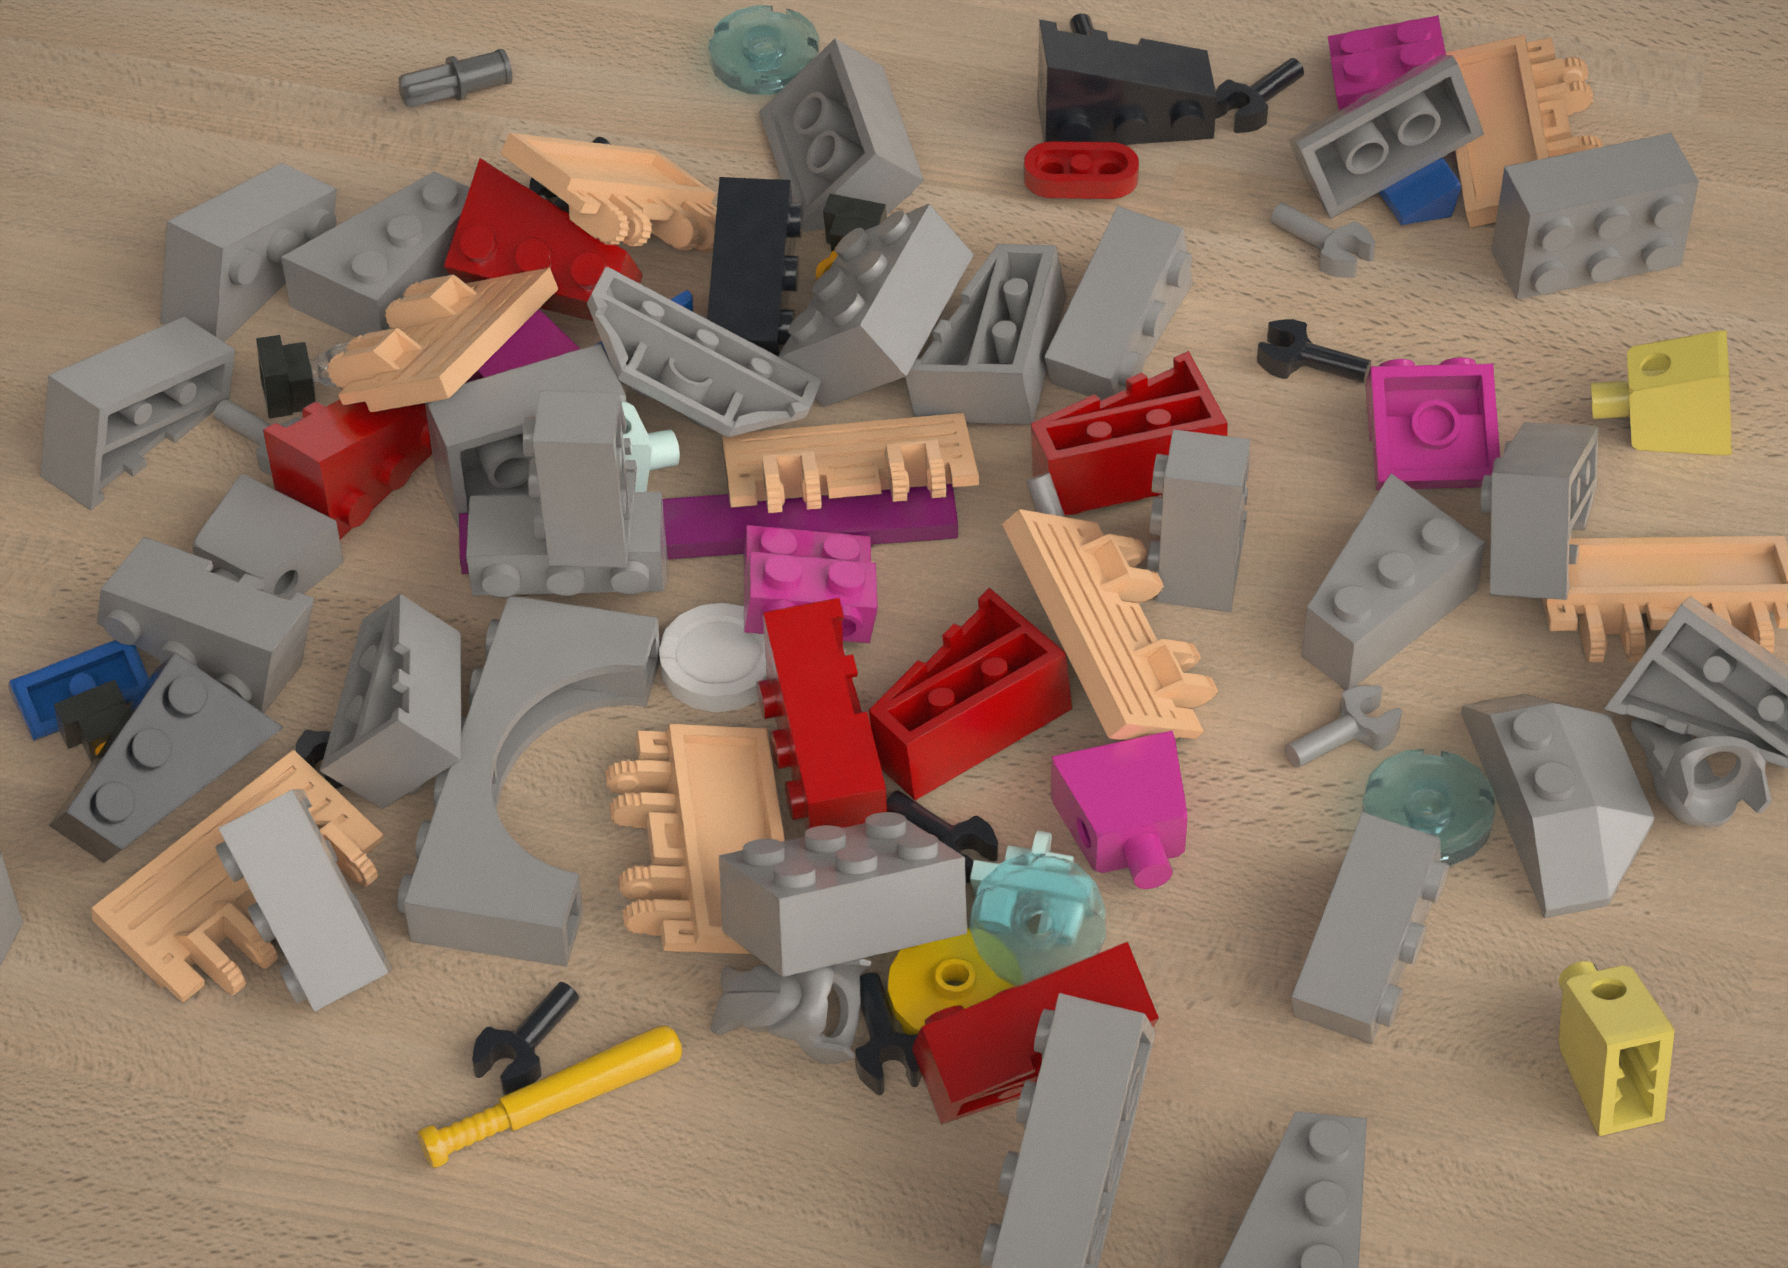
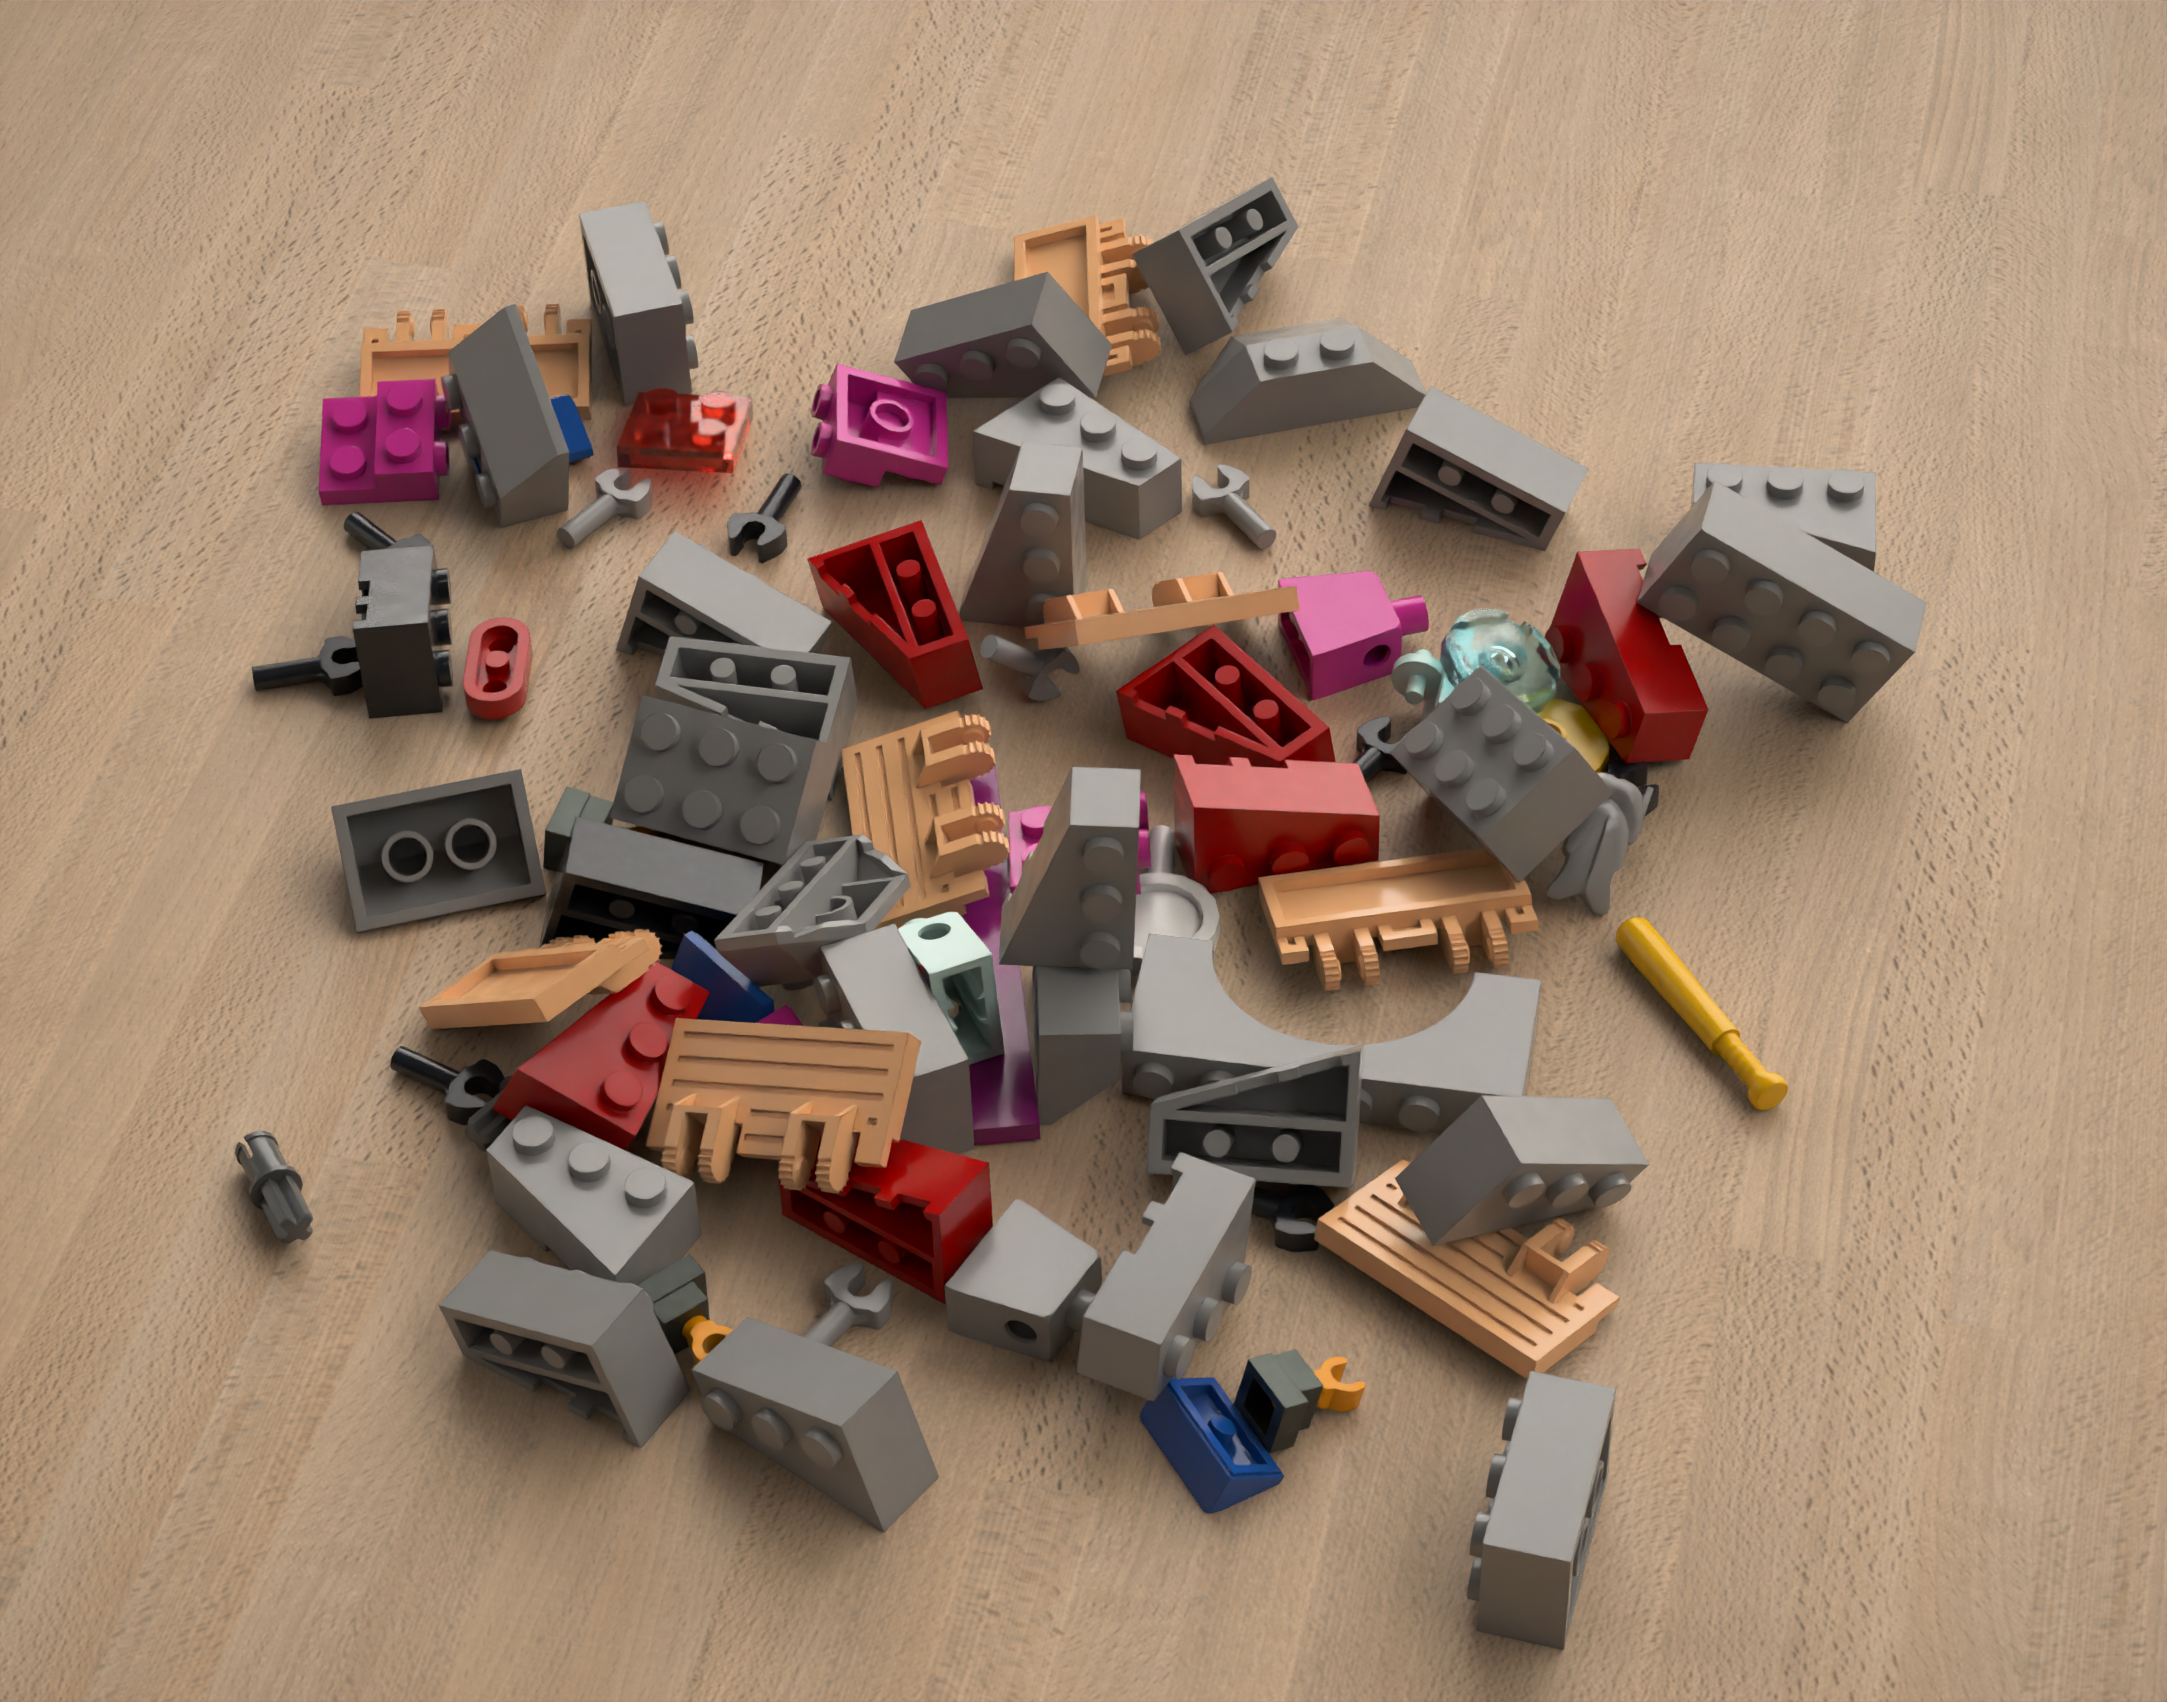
camera: 90 degrees left, 5 degrees down
(160, 755) = (1354, 1318): wedge -> none
(271, 313) = (683, 1308): none -> pearl dark grey piece
(290, 375) = (760, 1283): pearl dark grey piece -> none
(521, 1043) = (1641, 1042): black bar -> none
(761, 49) = (267, 921): clear light blue plate -> none
(1428, 283) = (685, 431): none -> clear red plate
(1441, 785) = (1328, 453): clear light blue plate -> none
(1615, 1046) = (1582, 342): light yellow torso -> none
(1673, 395) = (863, 295): light yellow torso -> none
(1687, 782) = (1312, 297): light grey hair -> none

